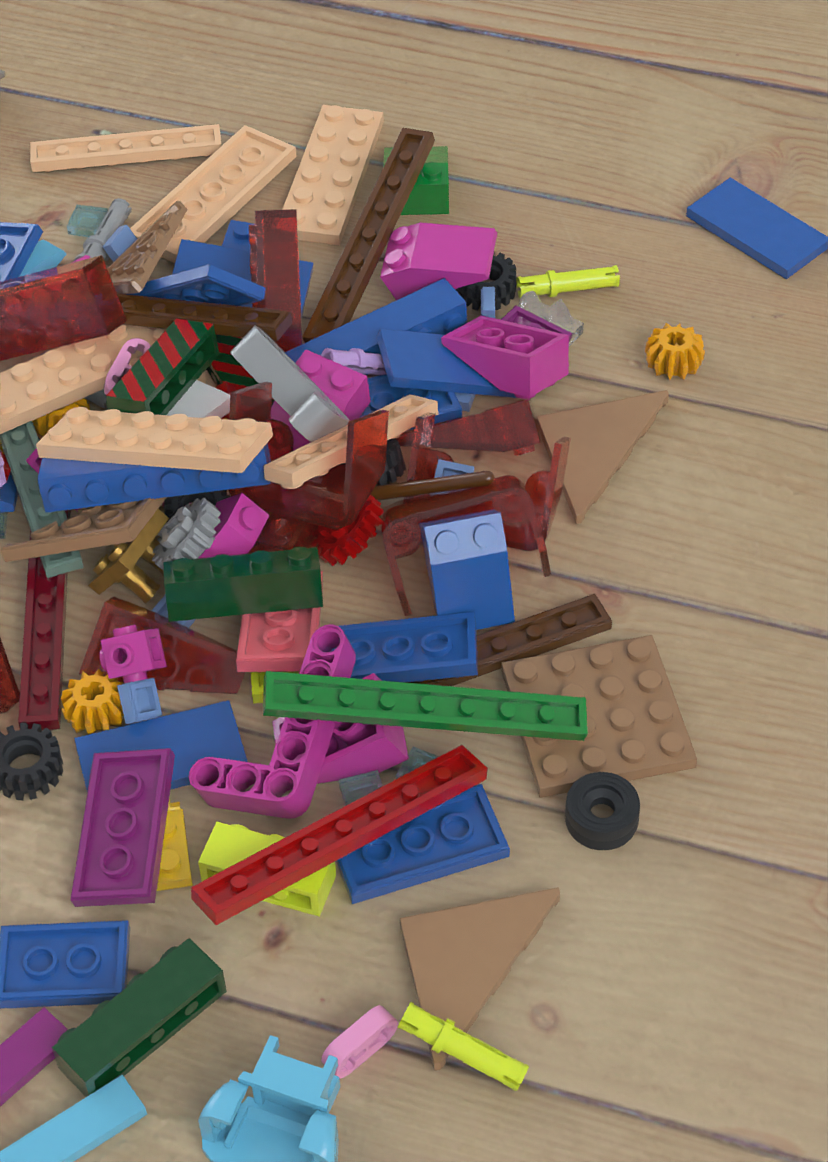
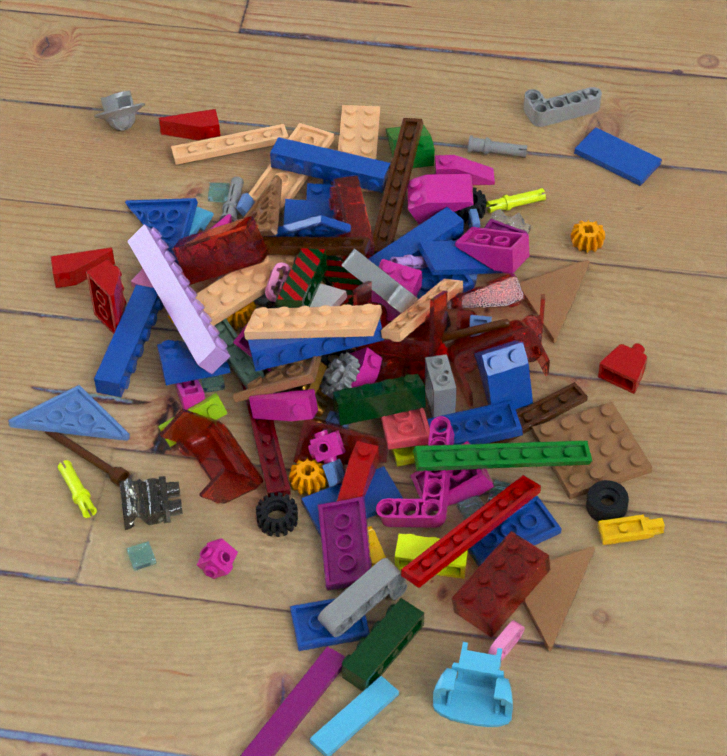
camera: 10 degrees left, 0 degrees up
(73, 113) = (192, 125): none -> red slope
(81, 576) = (285, 405): none -> dark pink slope
(121, 927) = (362, 596): none -> light grey beam
(179, 704) = (359, 471): none -> red slope
(258, 187) = (329, 164): none -> blue brick
(351, 572) = (439, 386): none -> light grey window
(373, 935) = (501, 584): none -> clear red brick
(469, 1049) = (565, 636): neon yellow pin -> none
(513, 231) = (455, 164): none -> dark pink slope
(543, 190) = (486, 146): none -> light grey pin
(631, 865) = (629, 529): none -> yellow hinge
(680, 141) = (560, 108): none -> light grey beam
(687, 577) = (624, 367): none -> red torso

